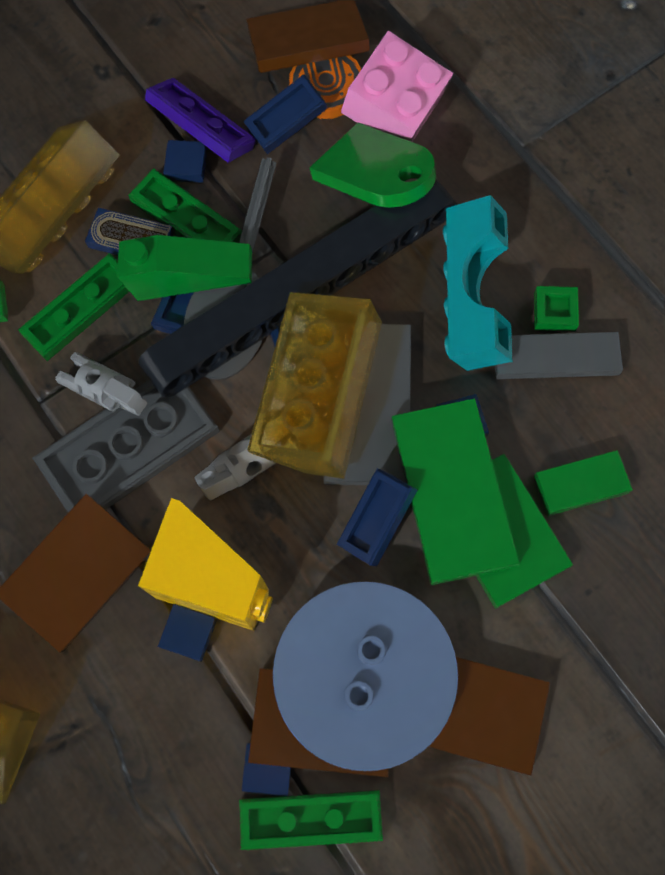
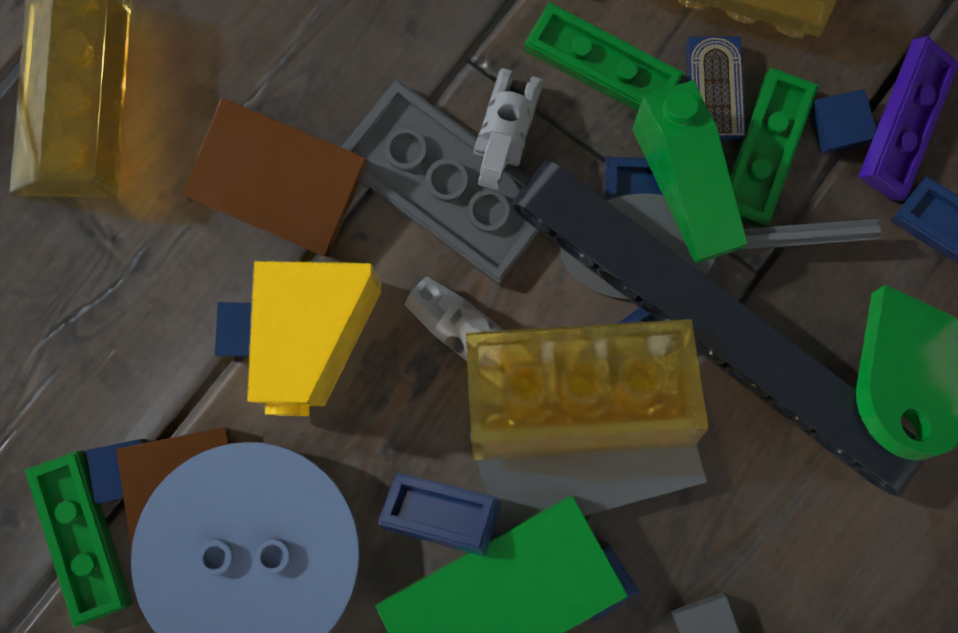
camera: 65 degrees right, 10 degrees up
(474, 238) = (855, 533): teal arch -> none

